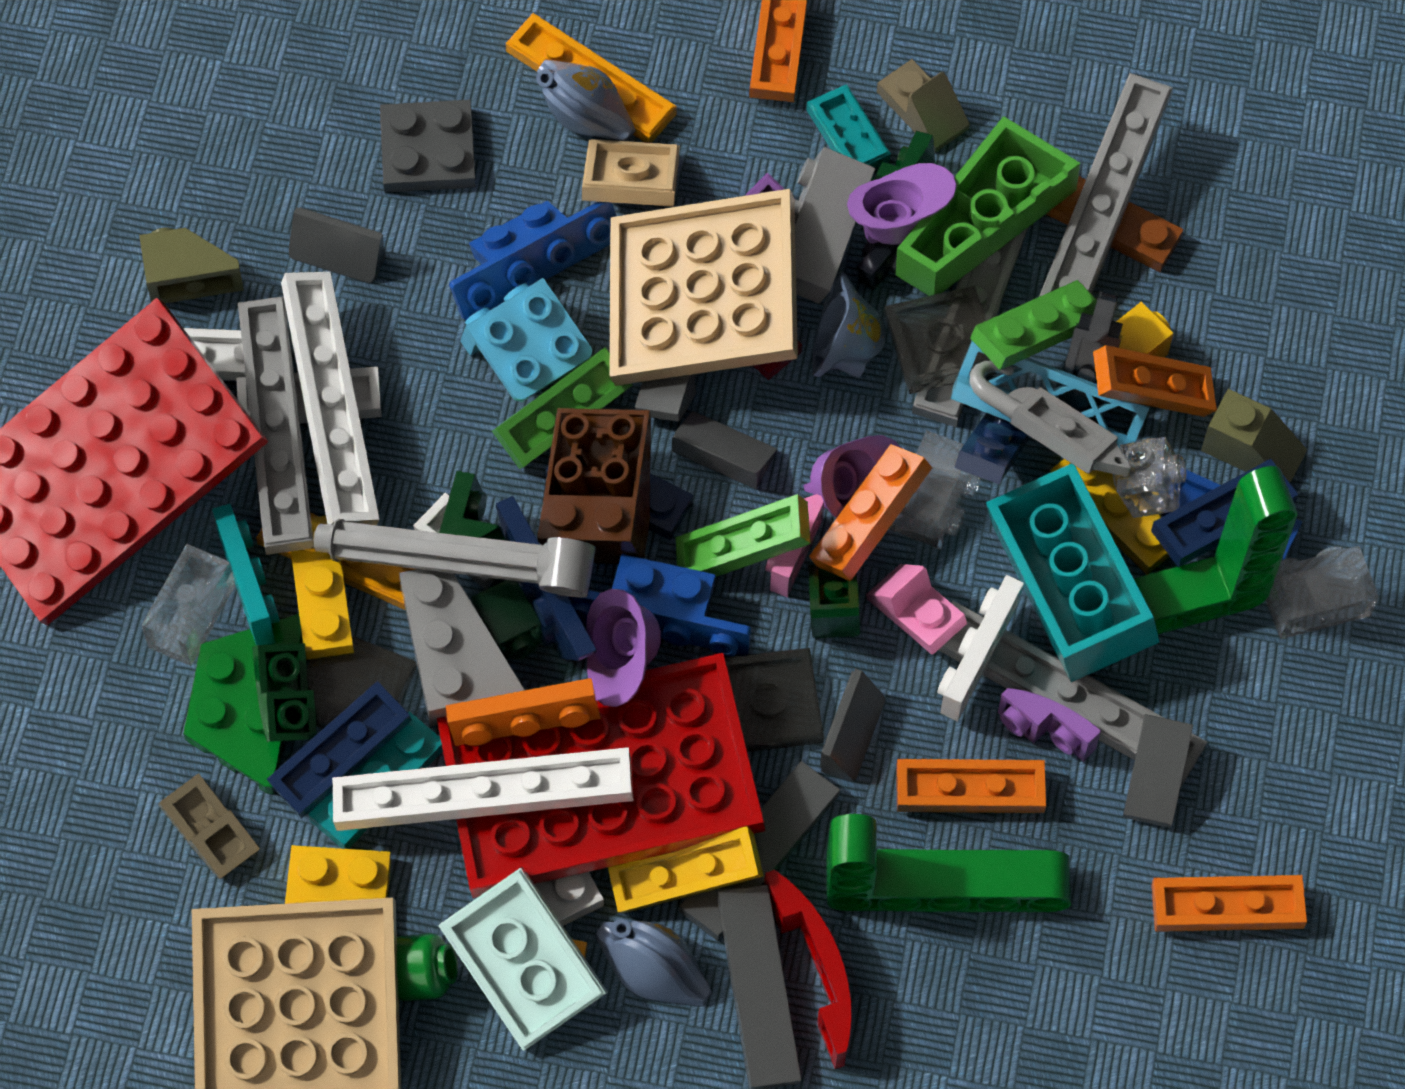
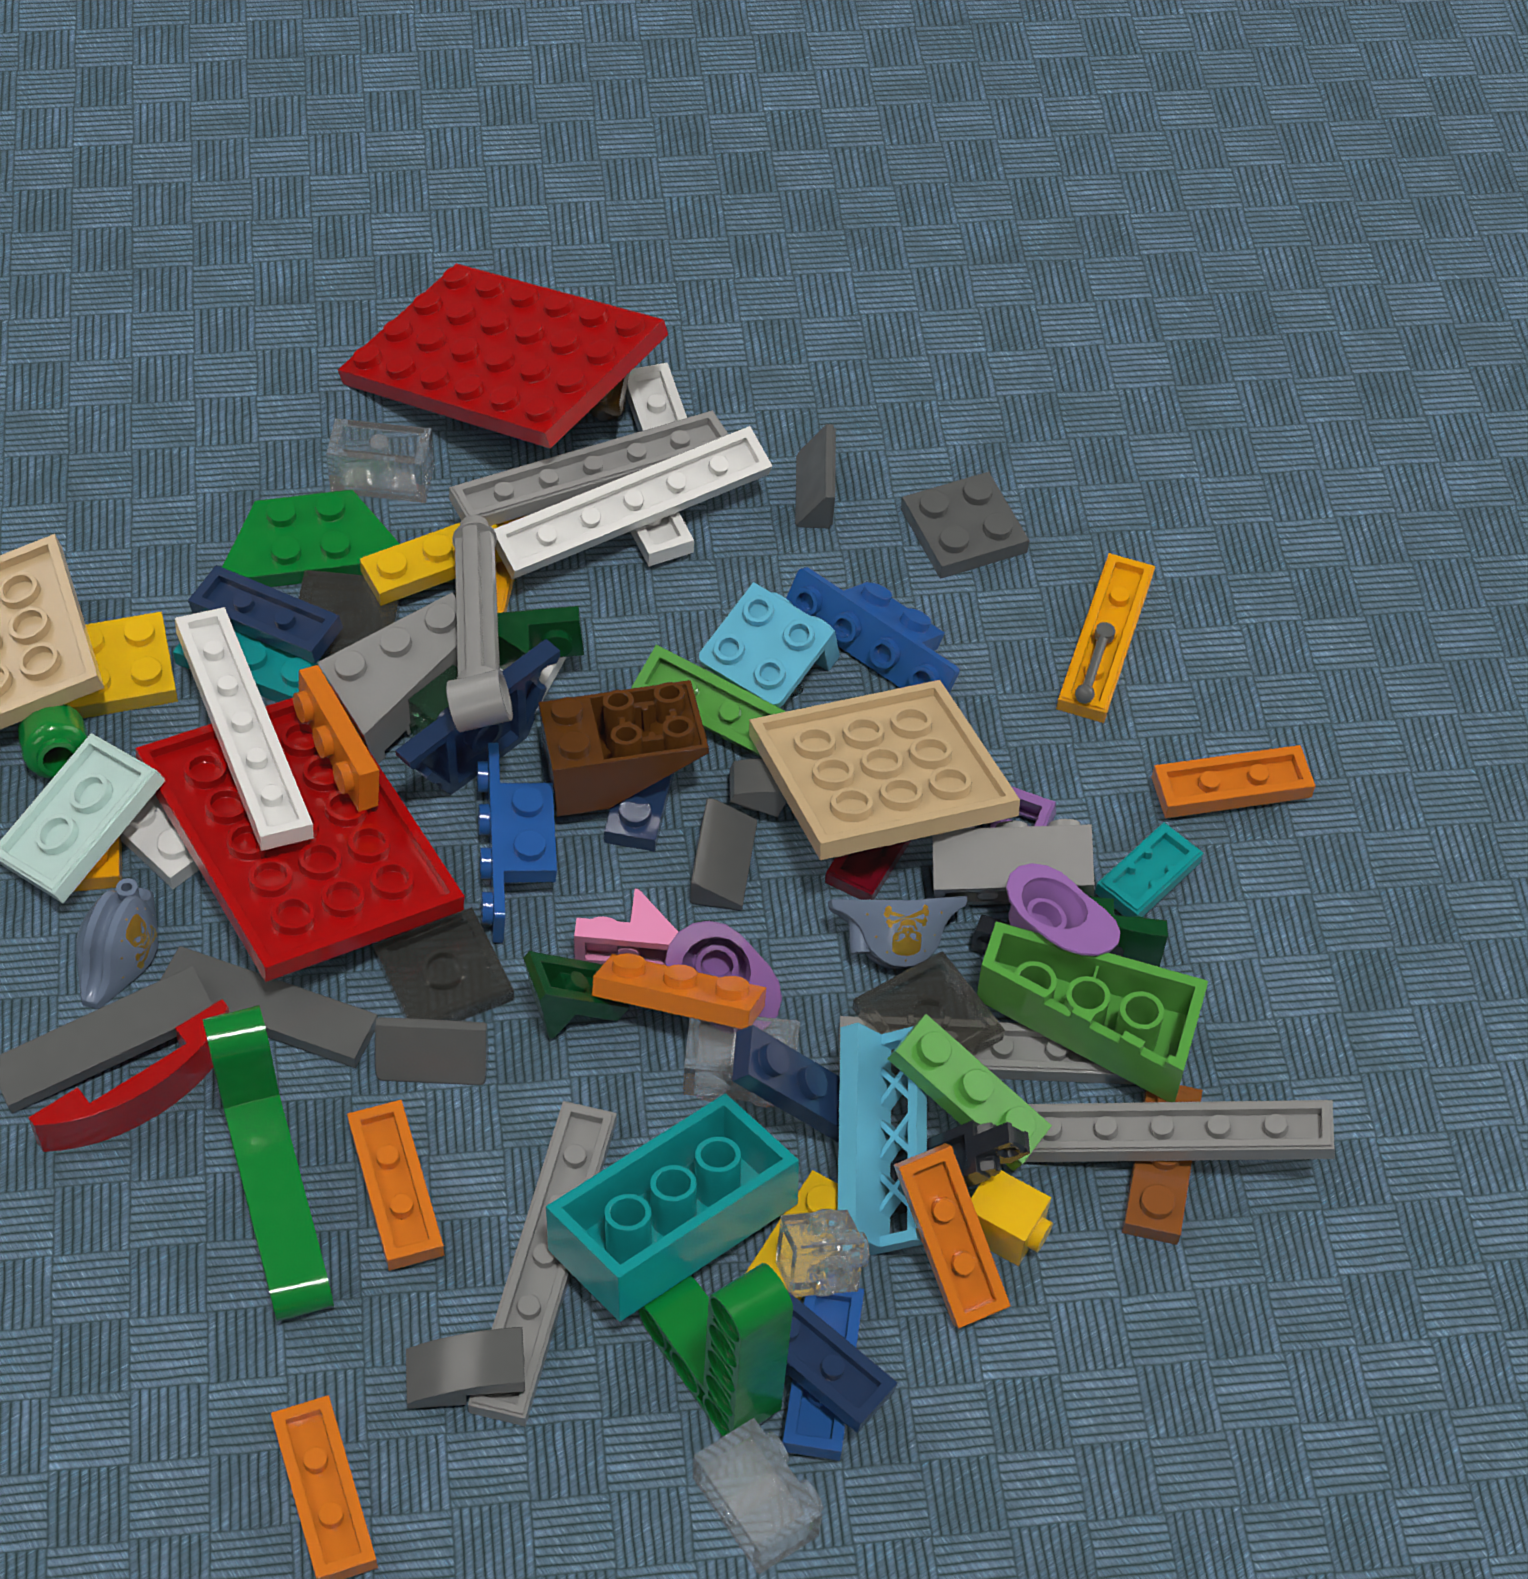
camera: 70 degrees right, 10 degrees down
(186, 266) = (741, 368): olive slope -> none
(208, 826) = (172, 546): dark tan slope -> none
(247, 574) = (419, 495): teal plate -> none
(283, 692) = (312, 556): dark green slope -> none
(584, 100) = (1067, 624): sand blue hat -> none
(625, 643) = (443, 806): medium lavender piece -> none
(630, 172) = (1002, 687): tan tile -> none
(657, 112) = (1103, 634): none -> dark grey hinge
(686, 872) = (210, 935): yellow plate -> none
(746, 537) = (604, 884): bright green plate -> none
(917, 607) = (590, 1076): bright pink slope -> none
(924, 103) = (1219, 937): dark tan slope -> none
(979, 647) = (548, 1138): white plate -> none
(1034, 715) = (494, 1238): medium lavender slope -> none
(1052, 423) = (839, 1126): light grey plate -> none
(1250, 434) = (931, 1375): olive slope -> none

